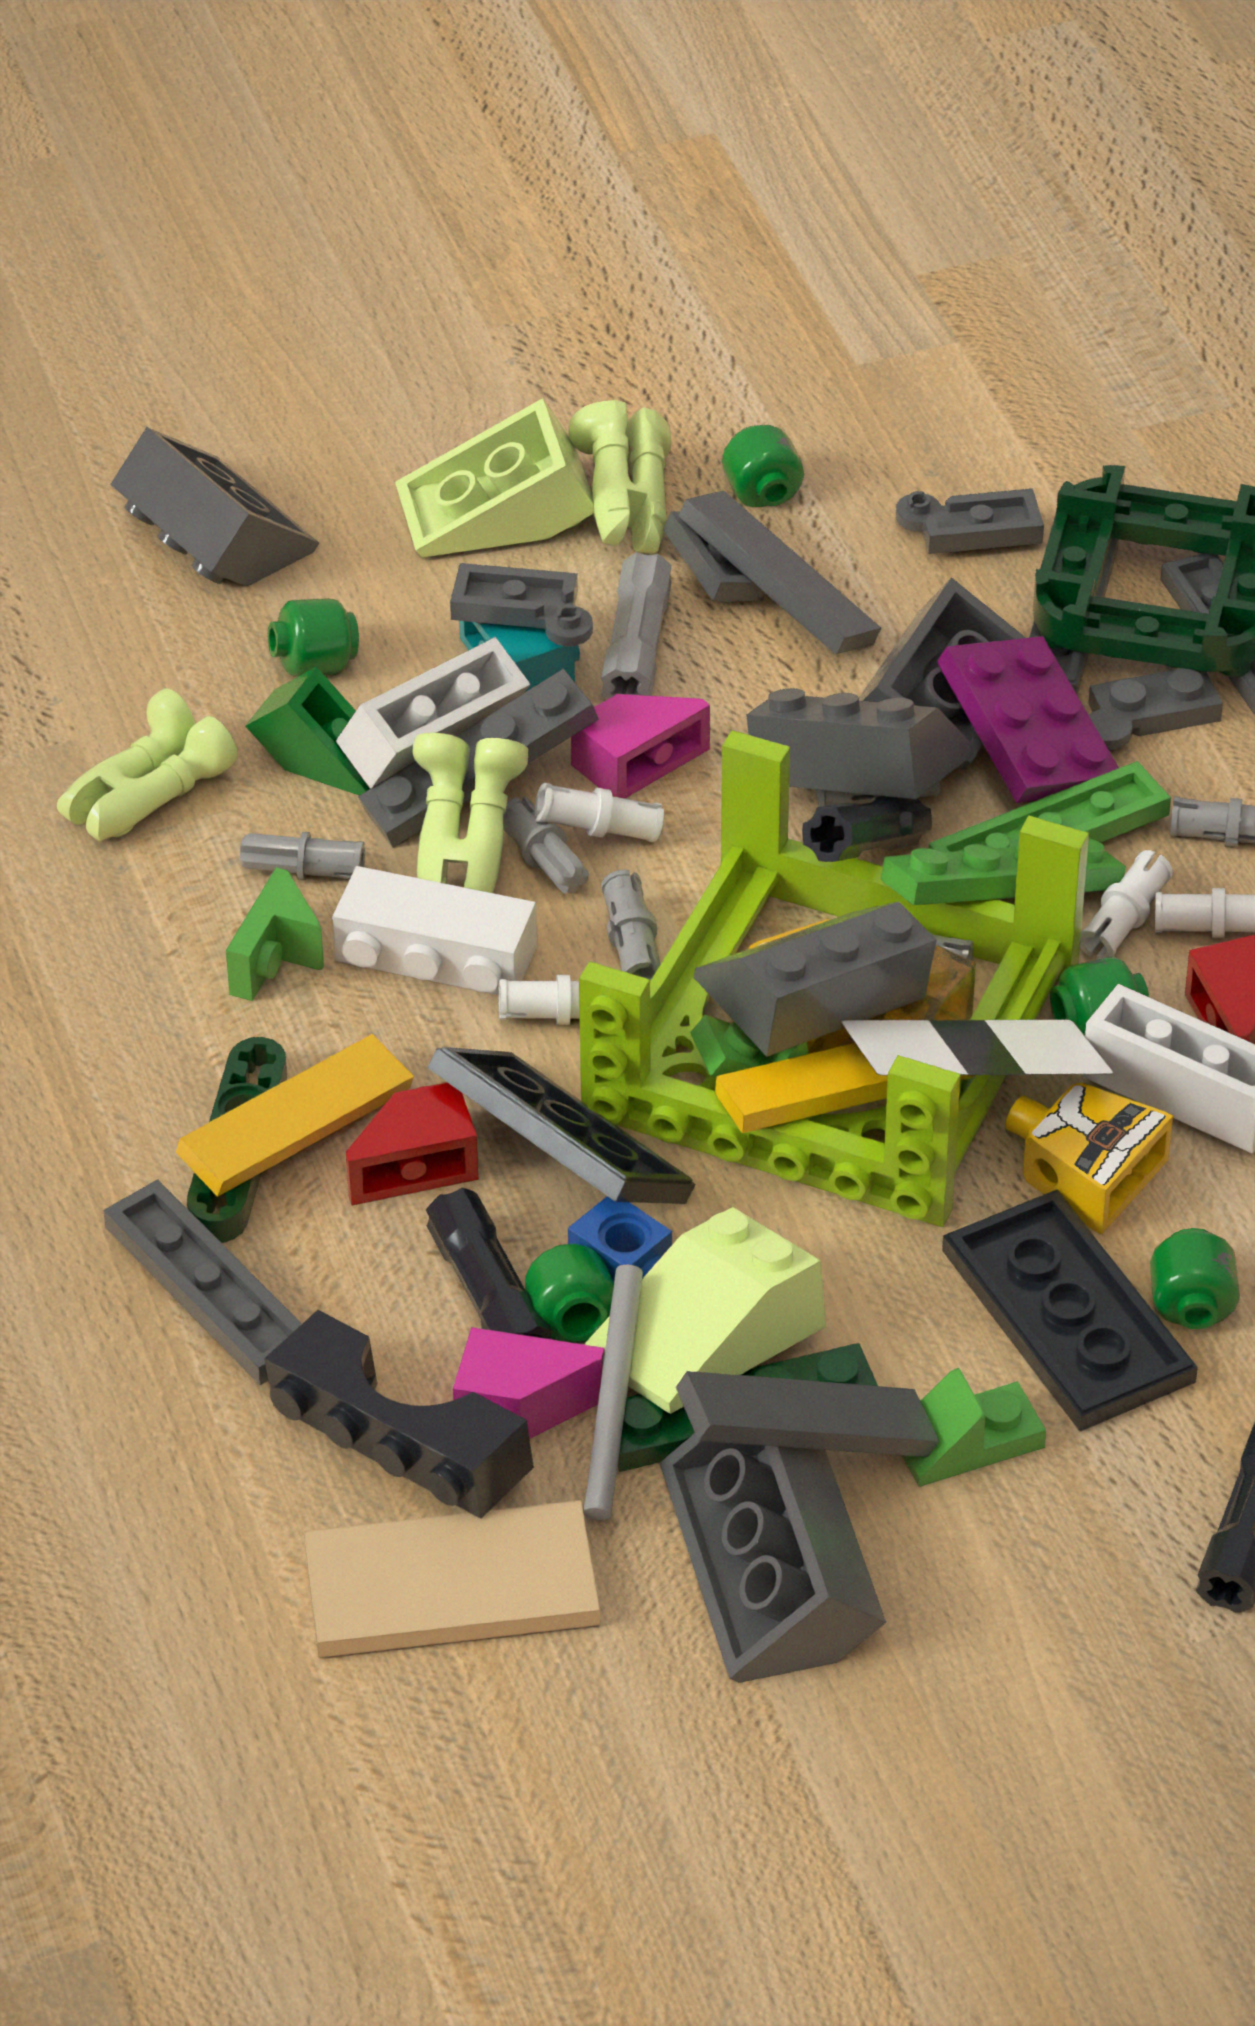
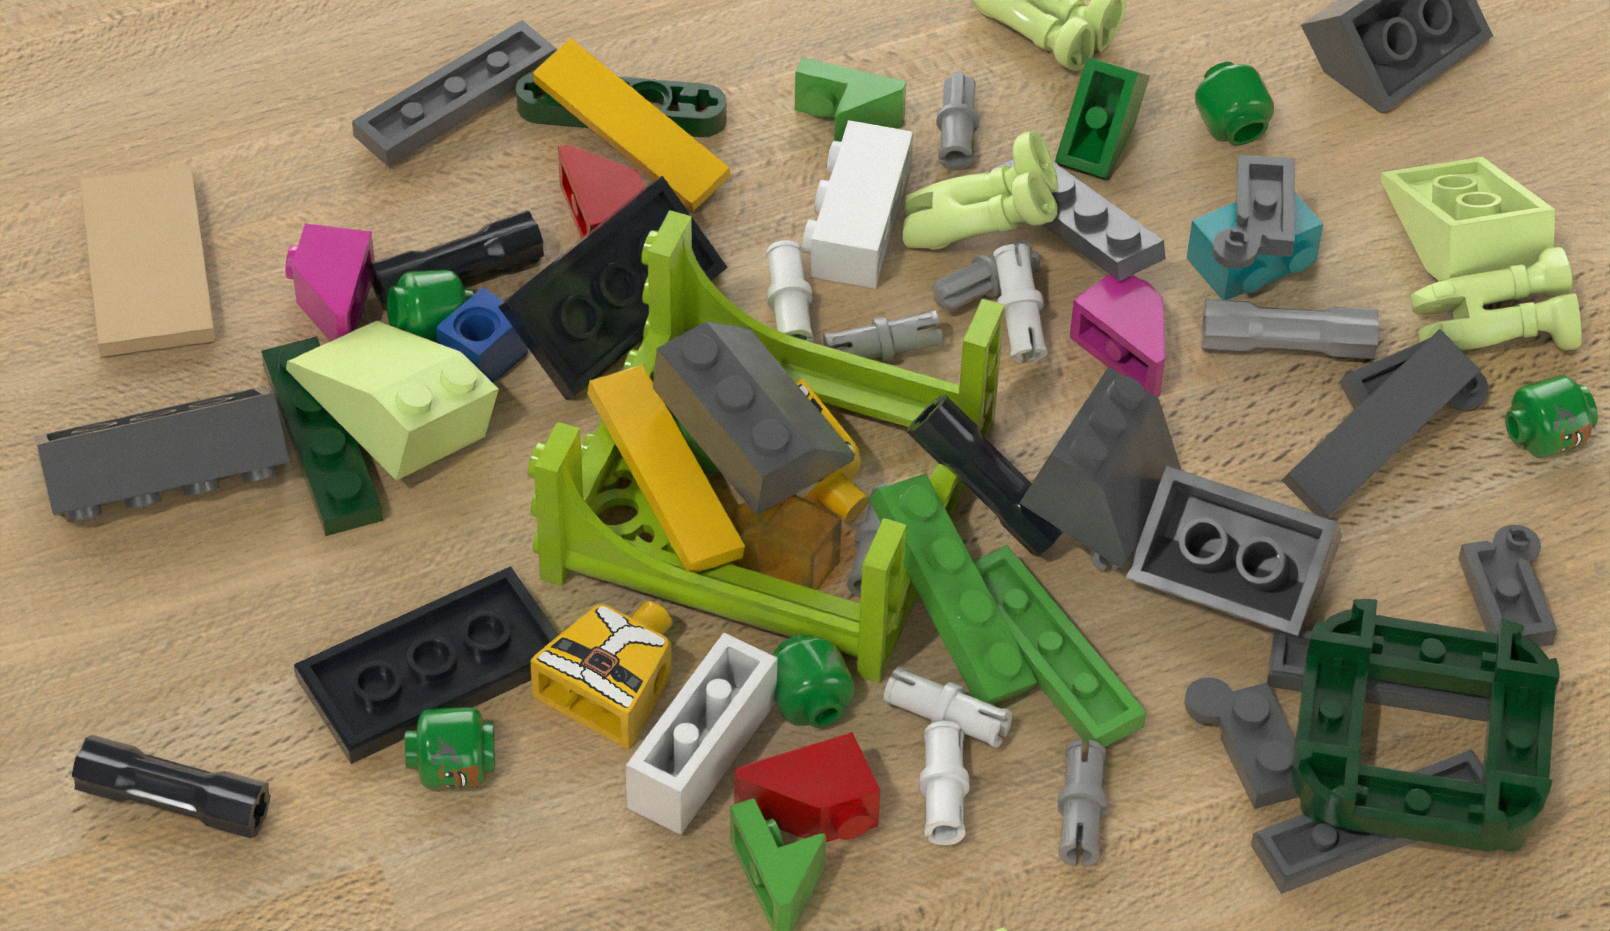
camera: 85 degrees right, 5 degrees up
(438, 701) = (1121, 170): white brick -> none
(458, 1449) = (334, 165): black arch -> none
(613, 1393) = (310, 330): light grey bar -> none
(806, 1414) = (239, 430): dark grey tile -> none
(975, 1428) = (287, 592): bright green slope -> none
(979, 1046) = (675, 542): white sticker -> none
(1026, 715) = (1183, 613): magenta plate -> none

